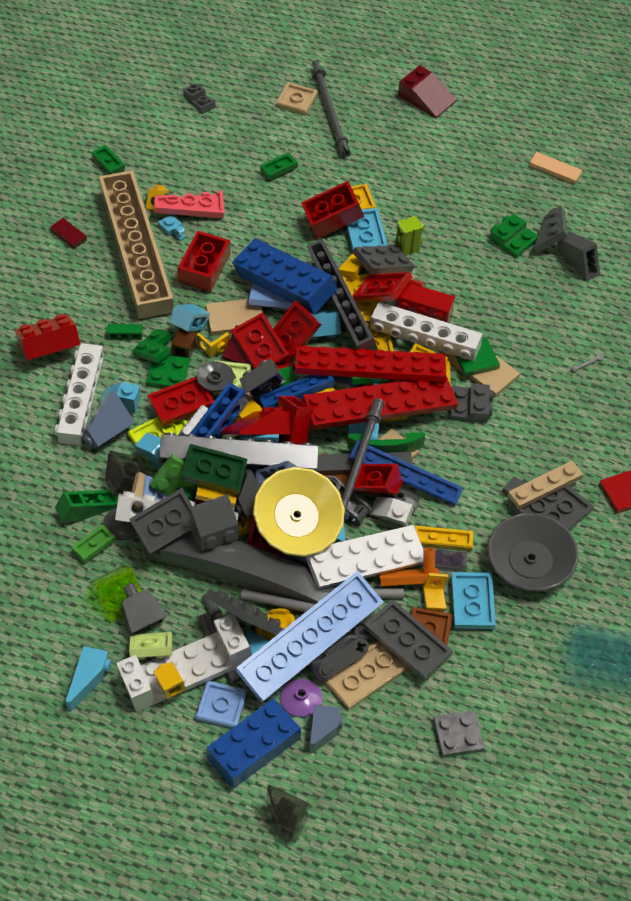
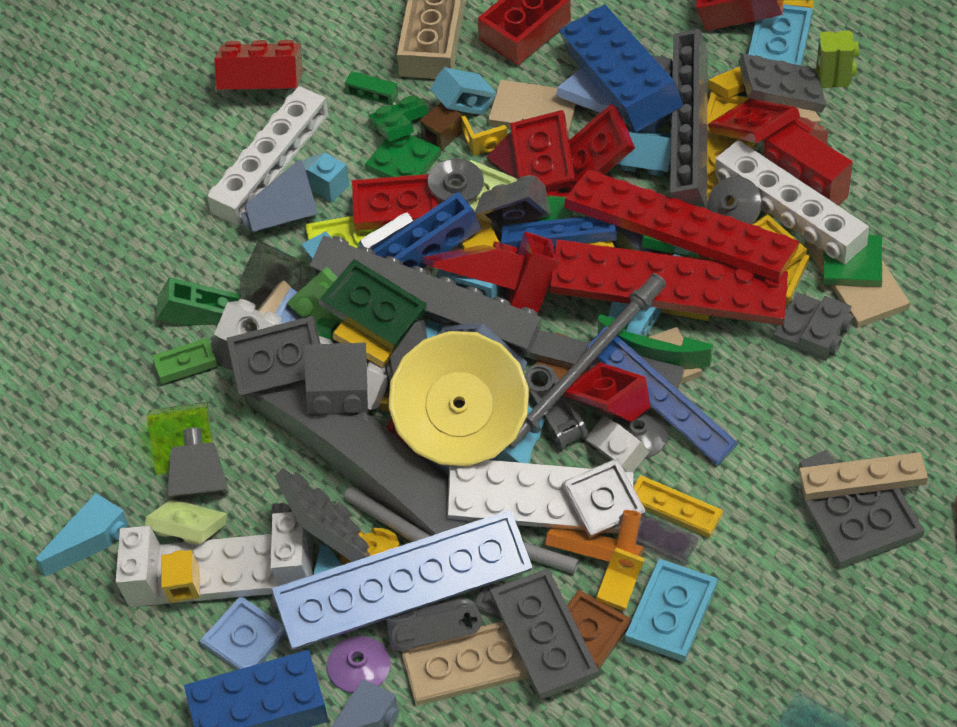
camera: 30 degrees right, 0 degrees up
(395, 331) = (746, 199): none -> dark grey dish
(404, 546) = (601, 497): none -> tile
(536, 538) = (795, 544): dark grey dish -> none

